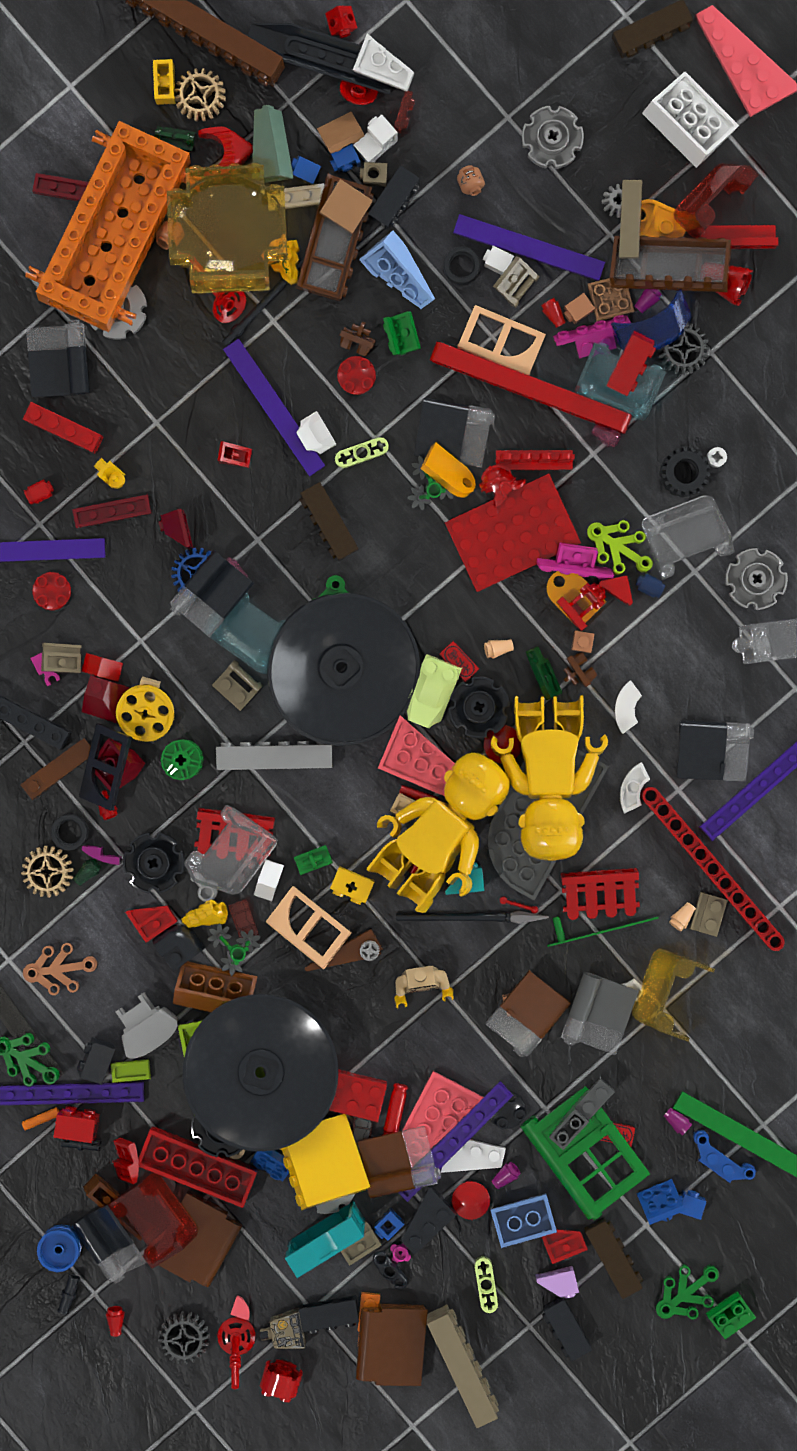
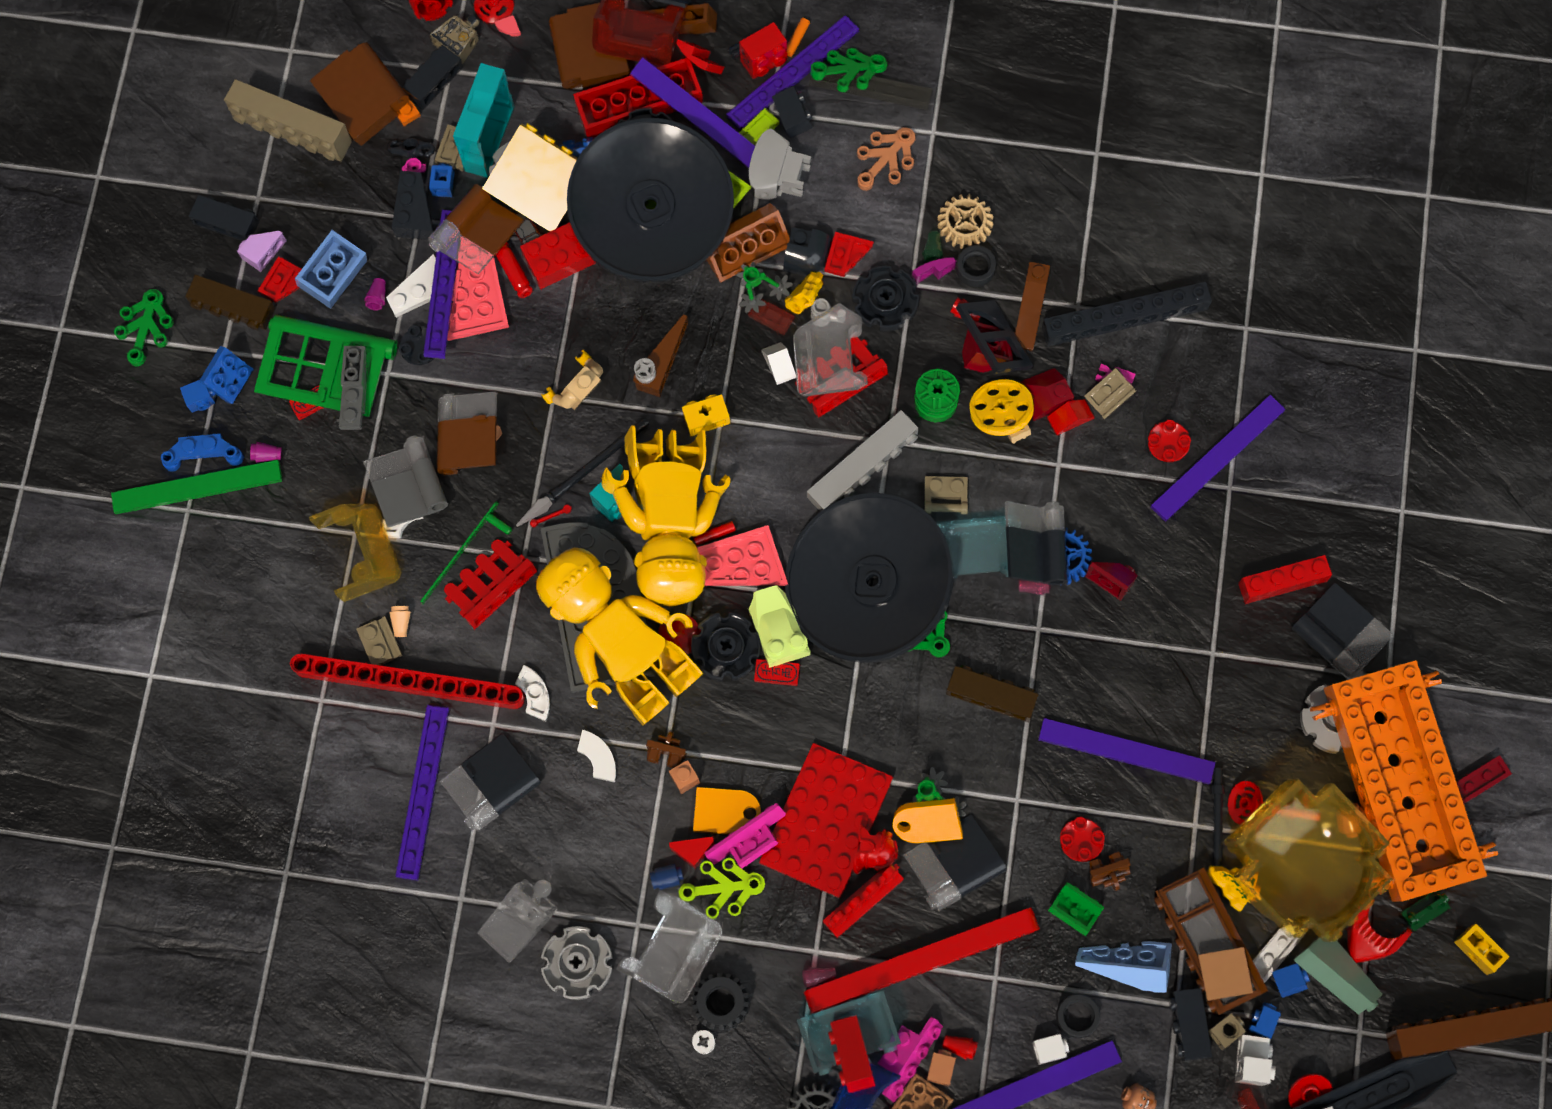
camera: 140 degrees right, 15 degrees down
(39, 492) = (1255, 511): red brick -> none
(110, 474) = (1211, 573): yellow hips -> none
(112, 511) = (1180, 547): dark red plate -> none
(168, 1118) = (693, 111): none -> dark purple tile
(191, 99) = (1447, 950): tan gear -> none
(234, 455) = (1123, 680): red slope -> none
(280, 921) = (739, 338): light nougat window -> none
(313, 859) = (756, 407): green hips -> none
(315, 434) = (1071, 758): white slope -> none
(340, 132) = (1290, 1040): medium nougat tile -> none
(377, 453) = (1019, 760): yellowish green beam -> none
(401, 802) = (722, 513): tan tile -> none
(471, 1200) = (389, 253): red dish -> none
(493, 1297) = (317, 192): yellowish green beam -> none
(495, 648) = (754, 710): light nougat cone -> none
(512, 278) = (1023, 1043): dark tan plate -> none
(522, 362) = (949, 976): light nougat window -> none
(543, 673) = (694, 722): dark green hinge -> none
(594, 593) = (712, 796): red tile -> none
(730, 1315) = (92, 336): green brick -> none

